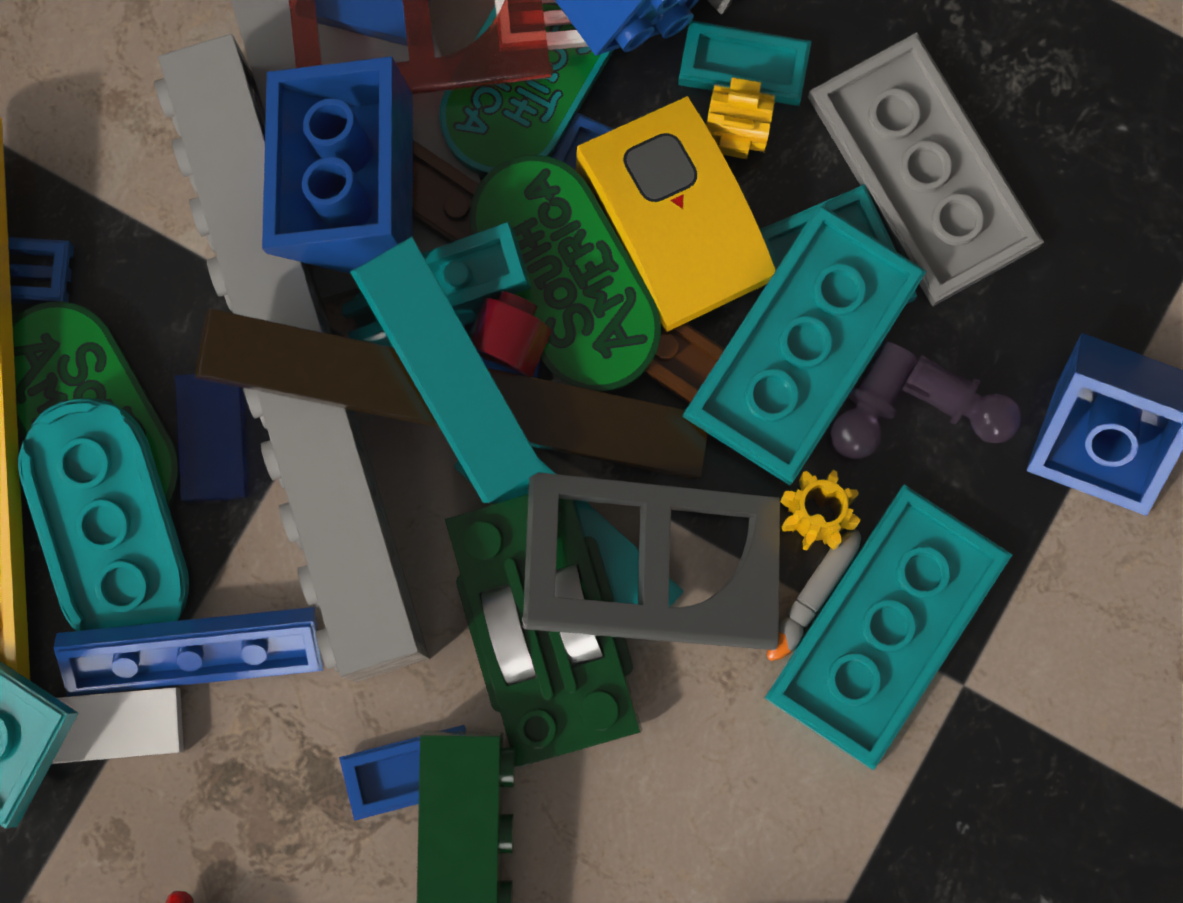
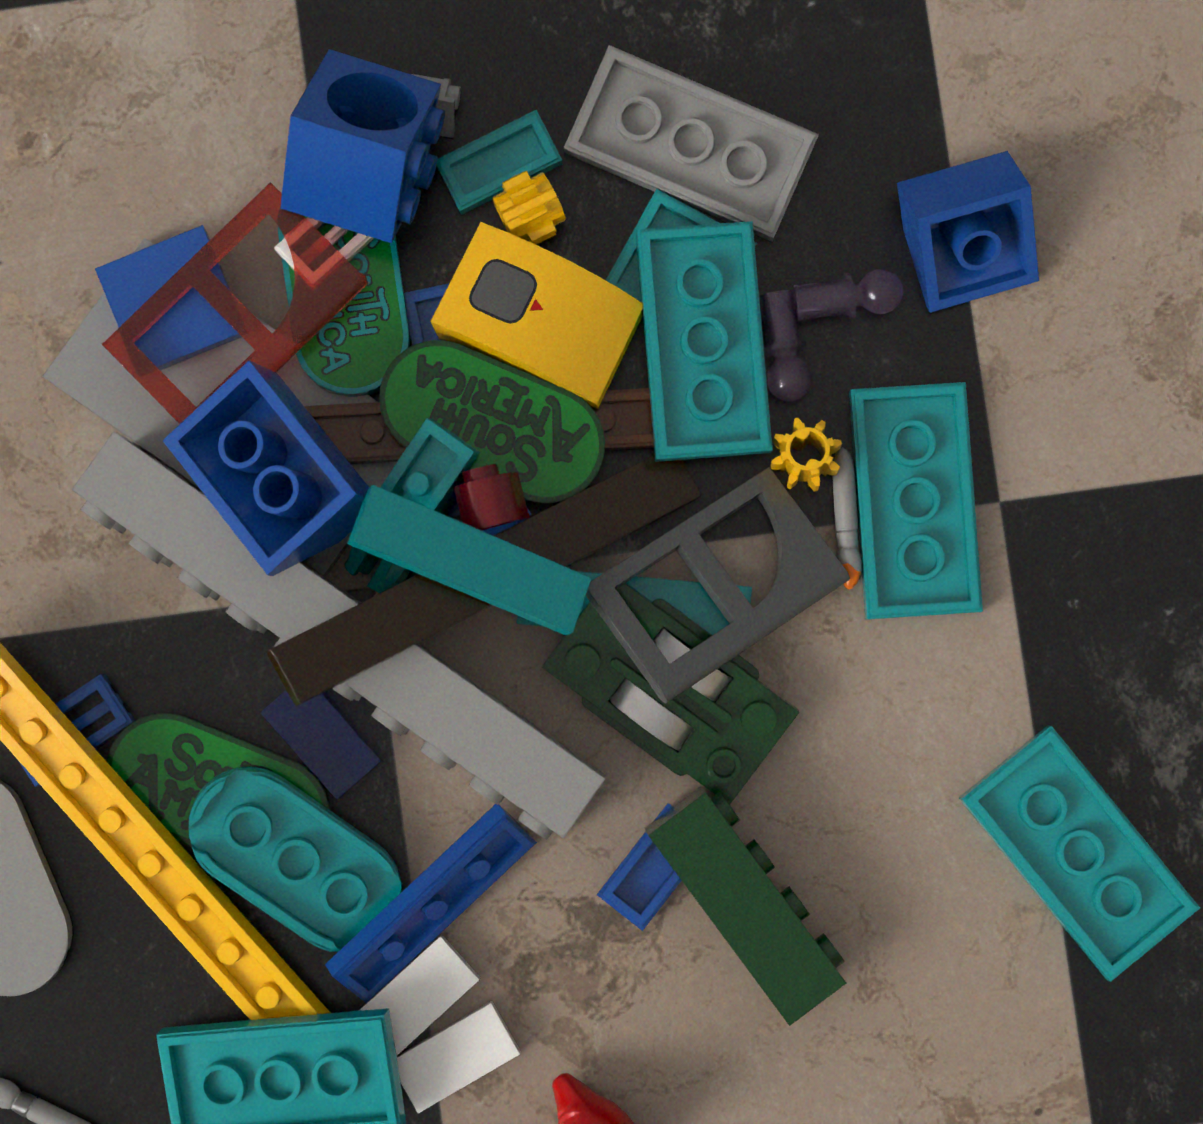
camera: 40 degrees left, 5 degrees up
(106, 804) = (456, 1056): none -> white tile

